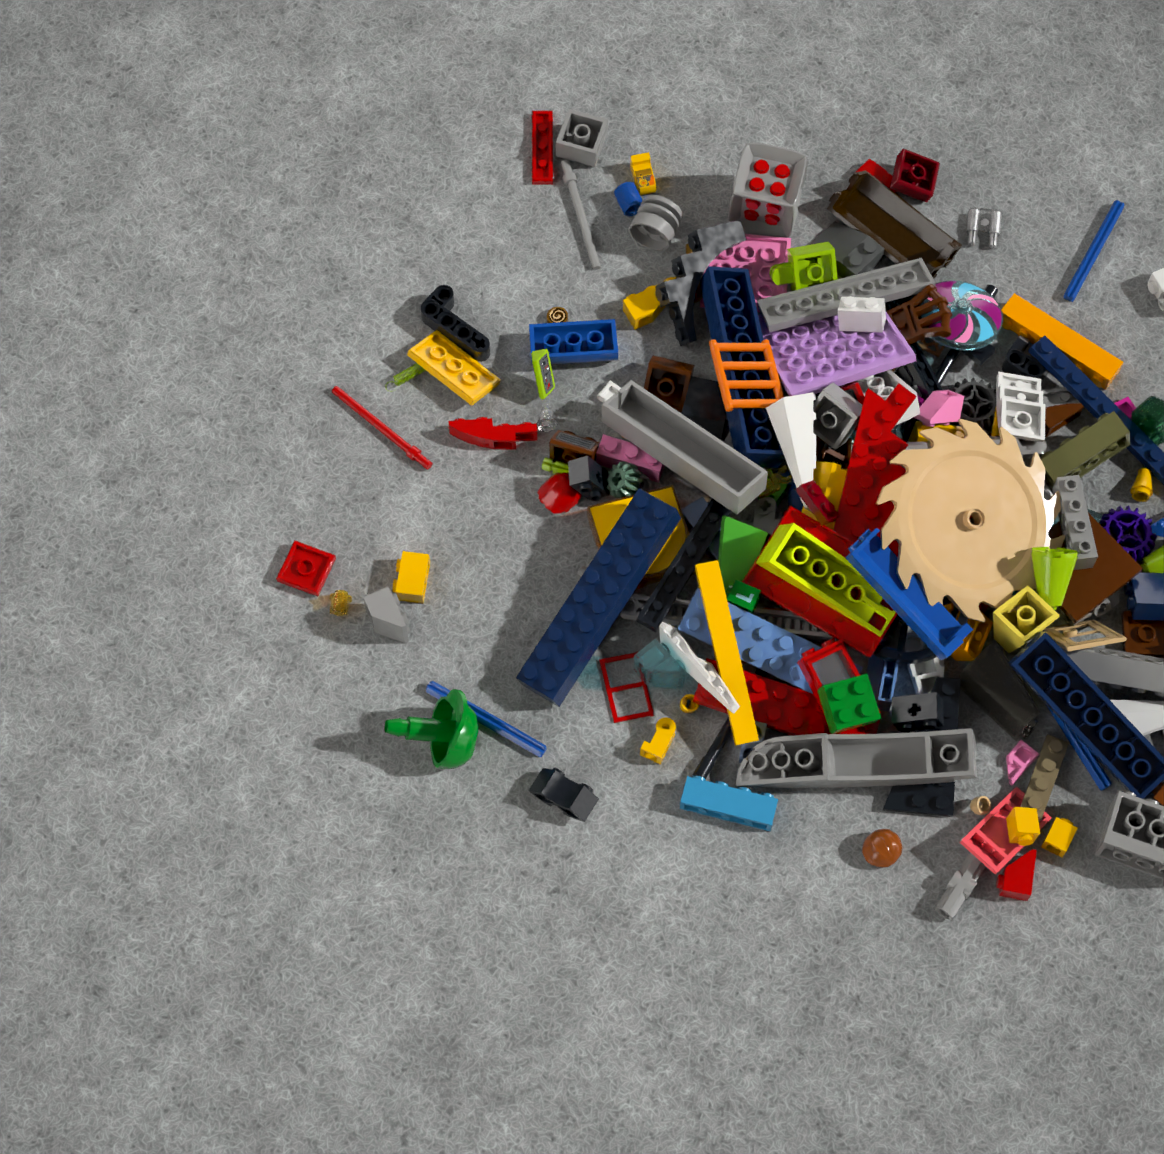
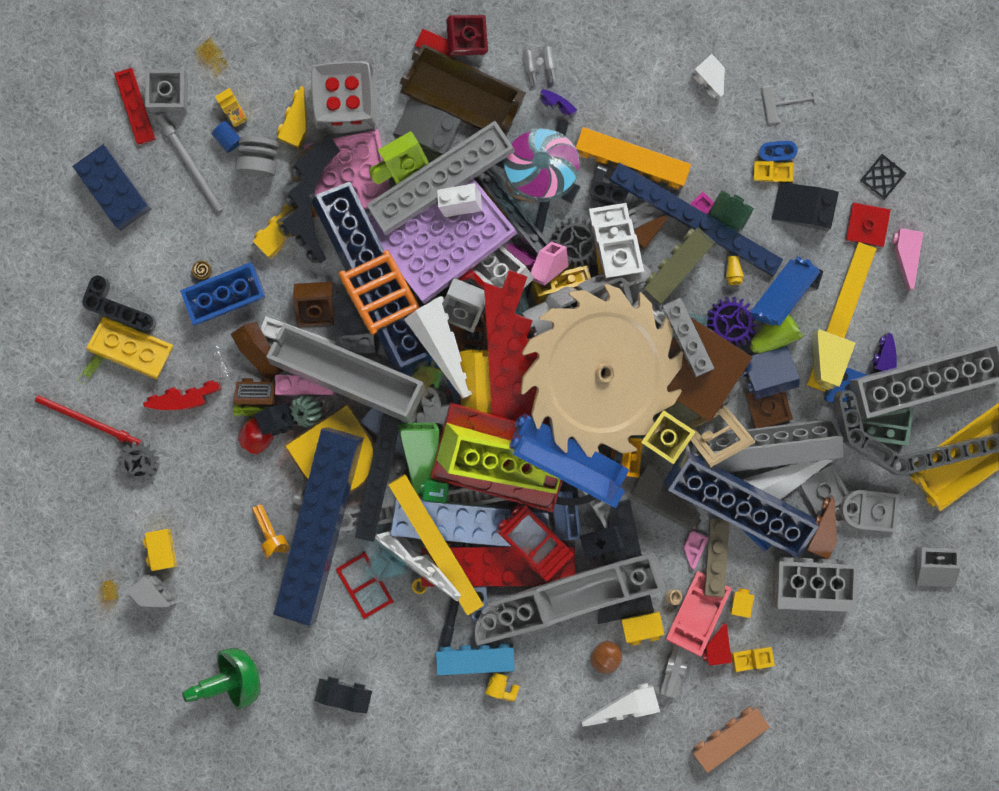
camera: 15 degrees left, 20 degrees up
(306, 568) = (71, 568): red plate -> none
(426, 475) = (144, 465): none -> dark grey gear
(492, 211) = (111, 187): none -> dark blue brick
(494, 723) = (261, 650): blue axle -> none
(540, 607) = (273, 543): none -> light orange piece
(543, 372) = (206, 333): lime slope -> none
(588, 403) = (255, 348): none -> reddish brown slope
(639, 121) = (211, 53): none -> clear yellow plate
(660, 742) = (406, 626): yellow leg -> none
(705, 207) = (295, 125): none -> yellow slope
(745, 840) = (497, 686): none -> yellow piece
(817, 502) = (472, 395): dark red plate -> none
(849, 704) = (547, 561): green brick -> none
(902, 908) = (636, 702): none -> white wedge
(907, 316) = (499, 189): reddish brown plate -> none
(935, 827) = (642, 627): none -> yellow brick
(991, 263) = (552, 99): none -> dark purple slope
(1005, 986) = (730, 739): none -> nougat brick
(1023, 825) = (711, 610): yellow brick -> none
(1053, 573) = (680, 392): lime cone -> none
(1056, 906) = (752, 659): none -> yellow slope
(1093, 251) = (640, 57): blue axle -> none

